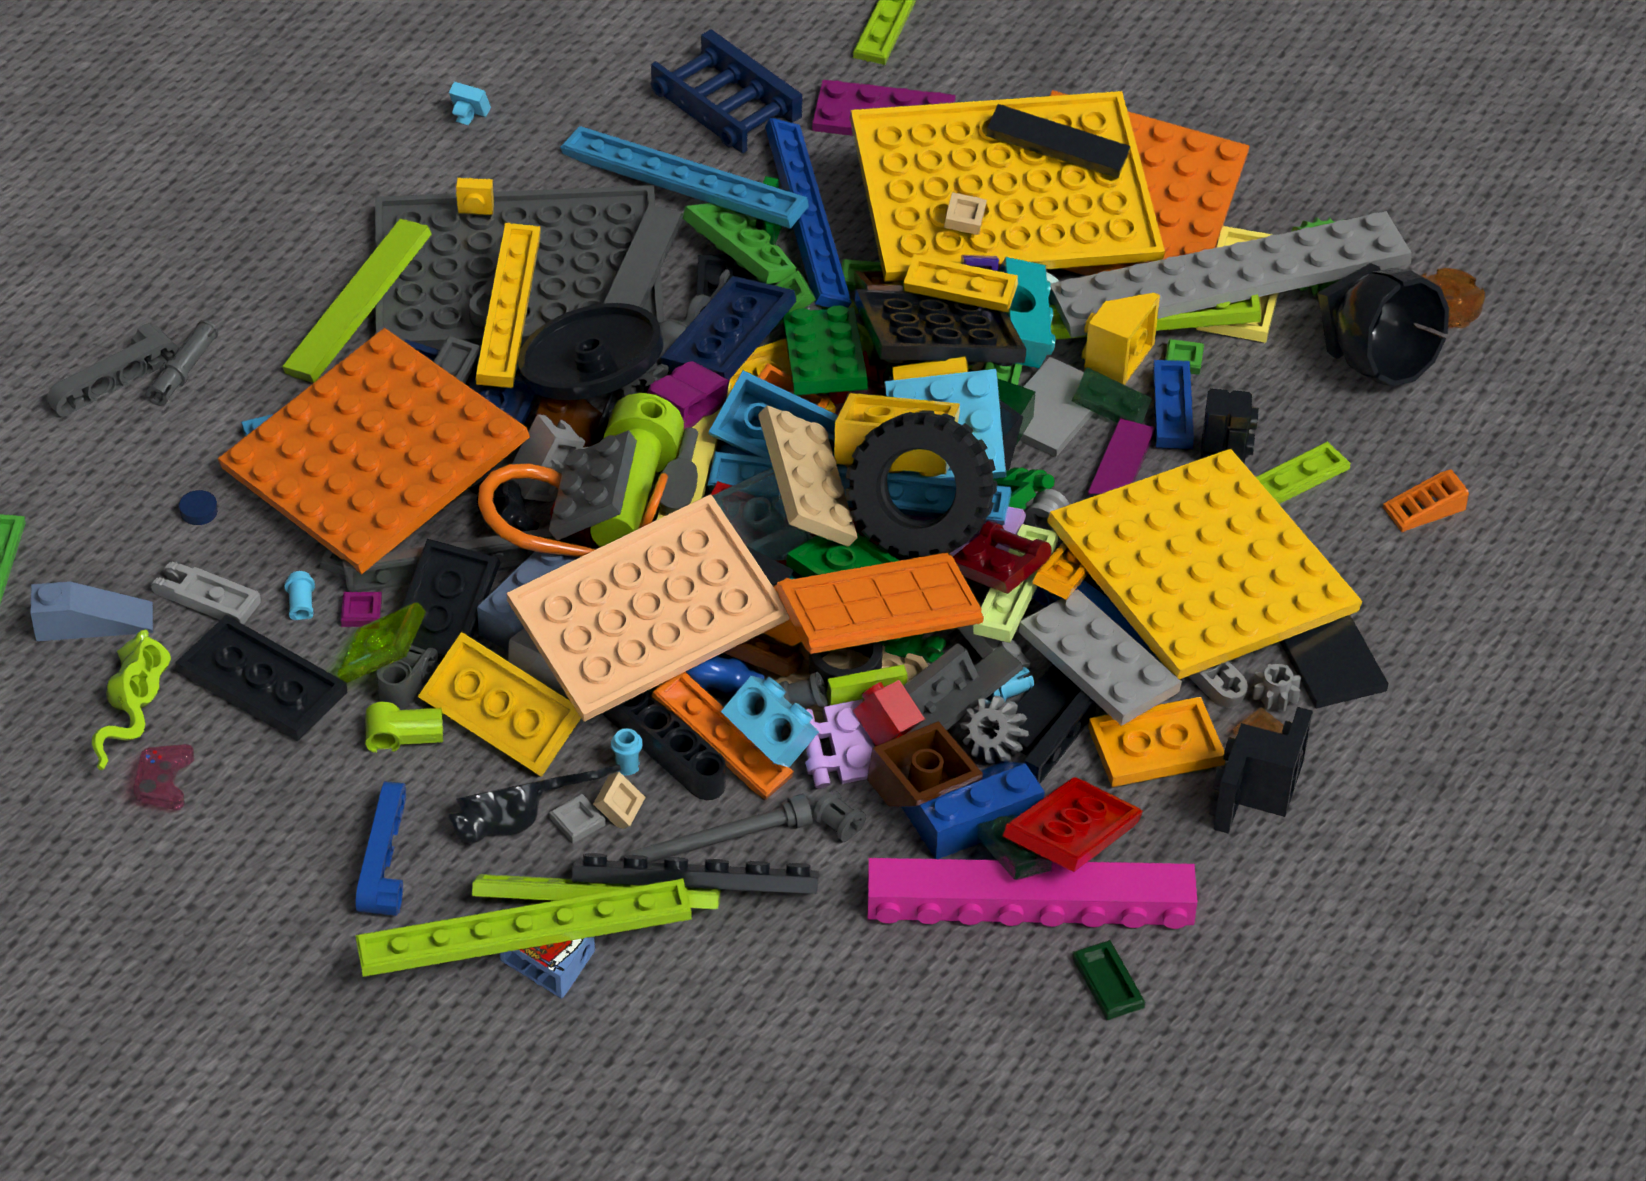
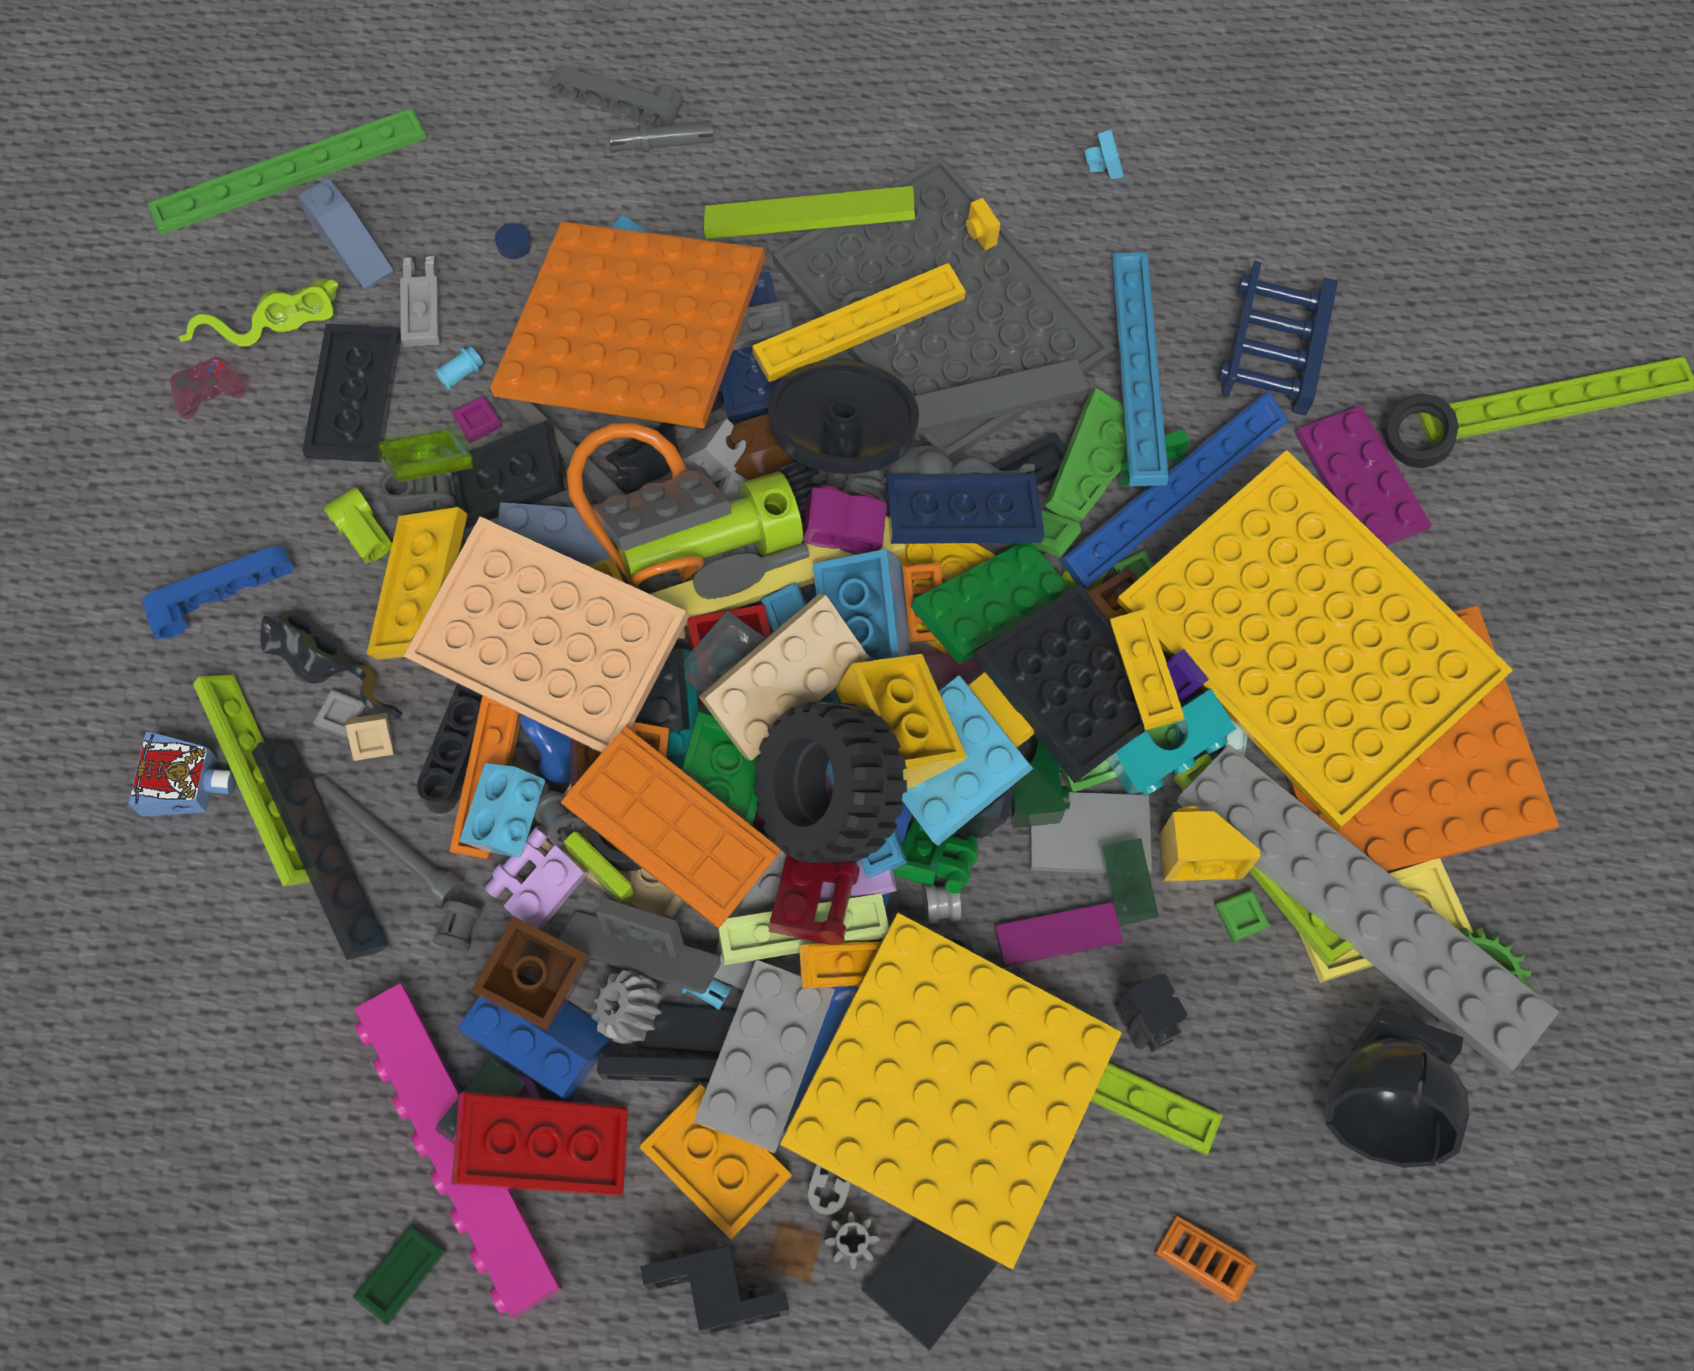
camera: 55 degrees right, 20 degrees up
(523, 927) = (163, 748): lime tile -> none
(626, 746) = (423, 717): medium azure pin -> none
(880, 35) = (1424, 404): none -> black tyre
(887, 712) = (573, 905): red brick -> none
(965, 213) = (1233, 622): tan plate -> none
(1058, 141) = (1395, 651): black tile -> none
(1173, 404) = (1166, 940): blue plate -> none
(1467, 297) = (1496, 1151): clear orange plate -> none

